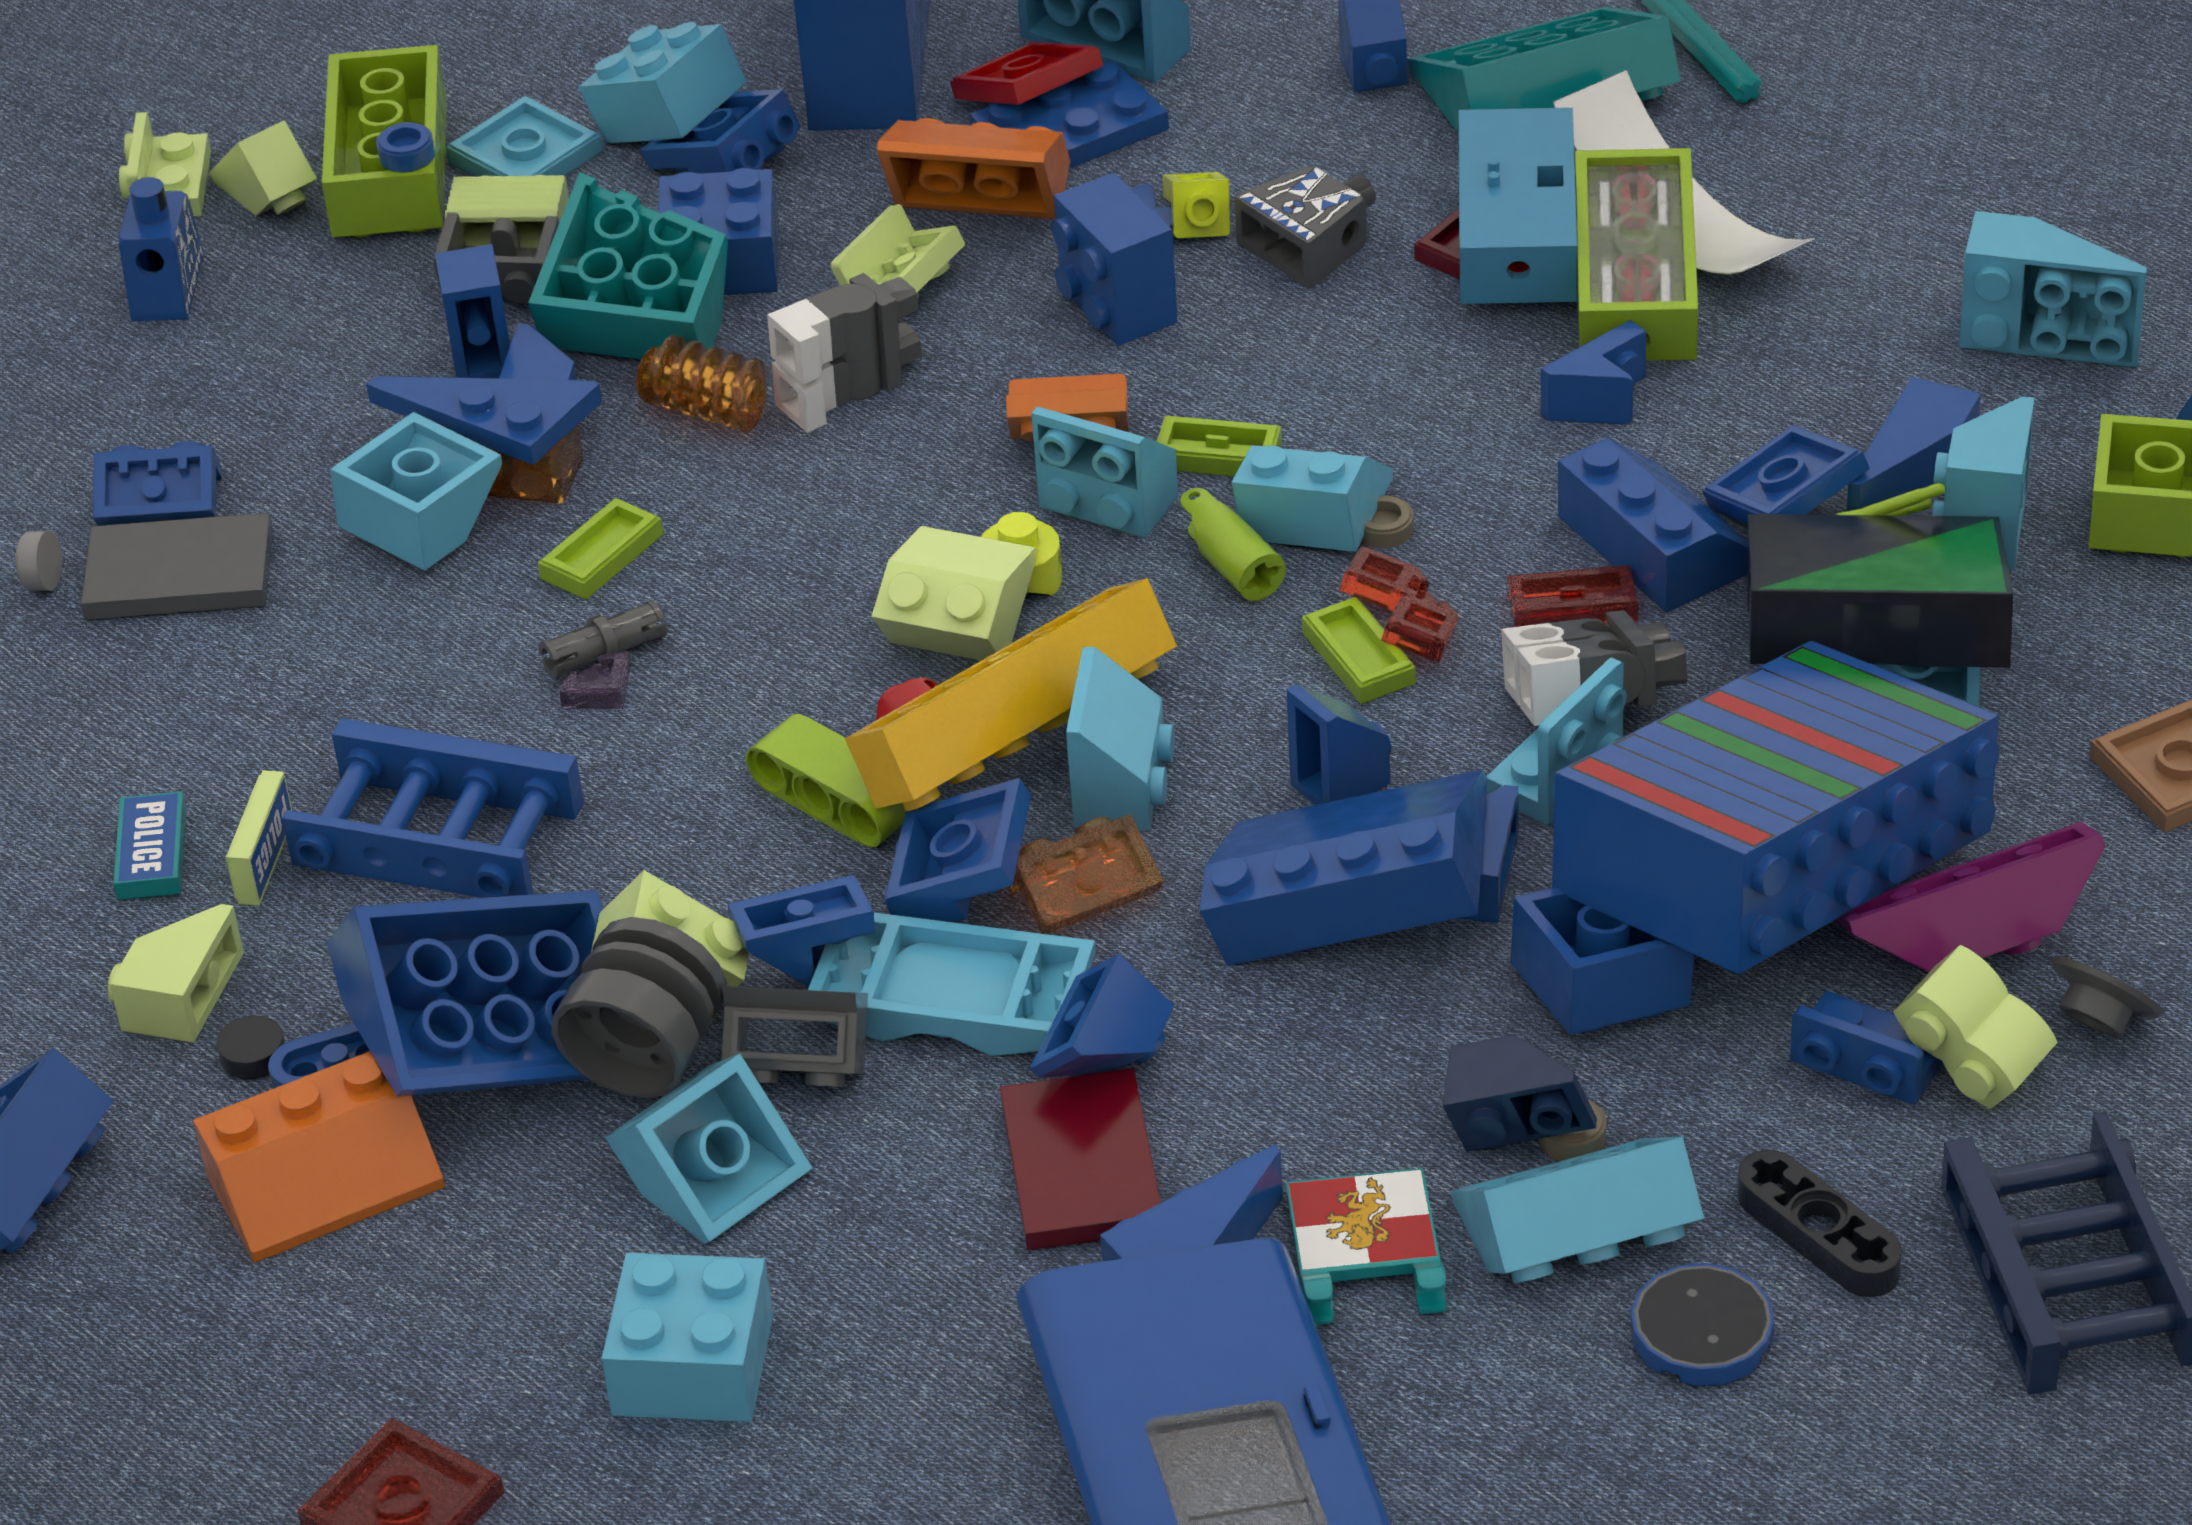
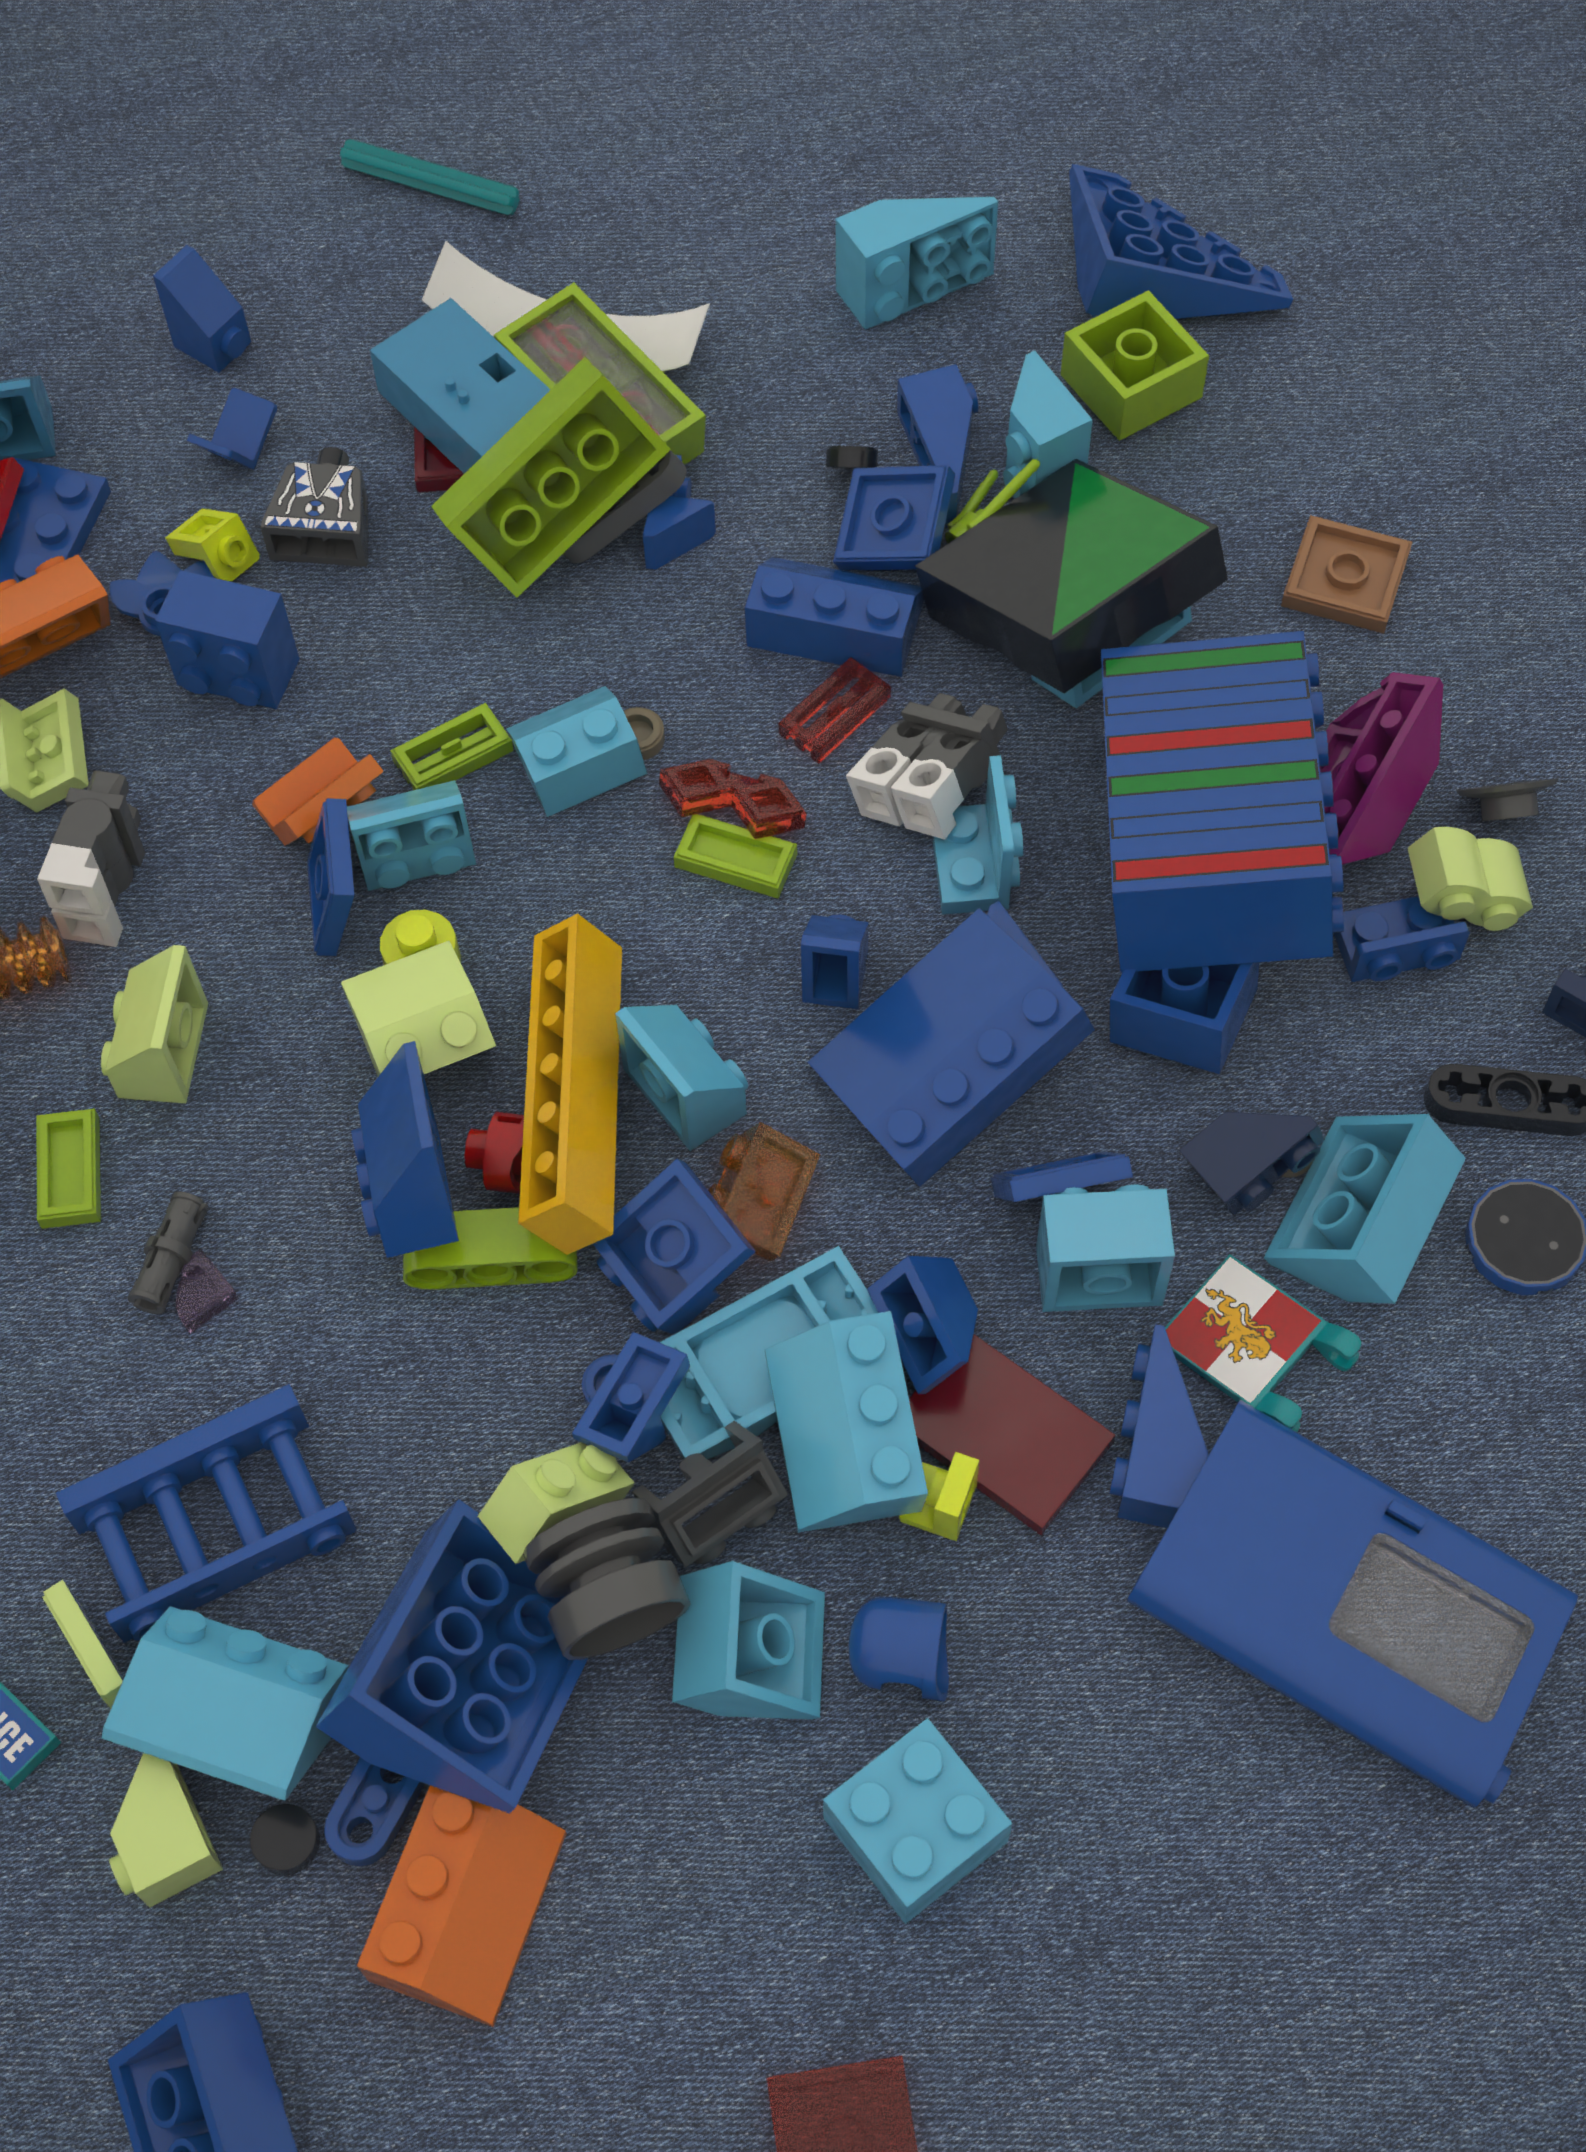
camera: 45 degrees left, 20 degrees up
(283, 903) = (224, 1702): none -> medium azure slope
(761, 490) = (156, 1029): none -> yellowish green slope
(812, 1206) = (901, 1644): none -> blue helmet
(827, 661) = (403, 1161): none -> blue slope
(953, 1048) = (846, 1423): none -> medium azure slope
(972, 1154) = (947, 1497): none -> neon yellow bracket
(996, 459) = (330, 877): none -> blue tile
(1233, 546) = (561, 831): lime piece -> none
(1296, 1069) = (1104, 1248): none -> medium azure brick
(1312, 135) = (240, 429): none -> blue bracket
(1325, 999) = (1061, 1174): none -> blue tile
(1491, 269) = (550, 477): none -> lime brick
(1550, 62) = (355, 268): teal slope -> none
(1550, 338) = (637, 502): none -> dark grey beam
(1806, 416) = (851, 457): none -> black tile

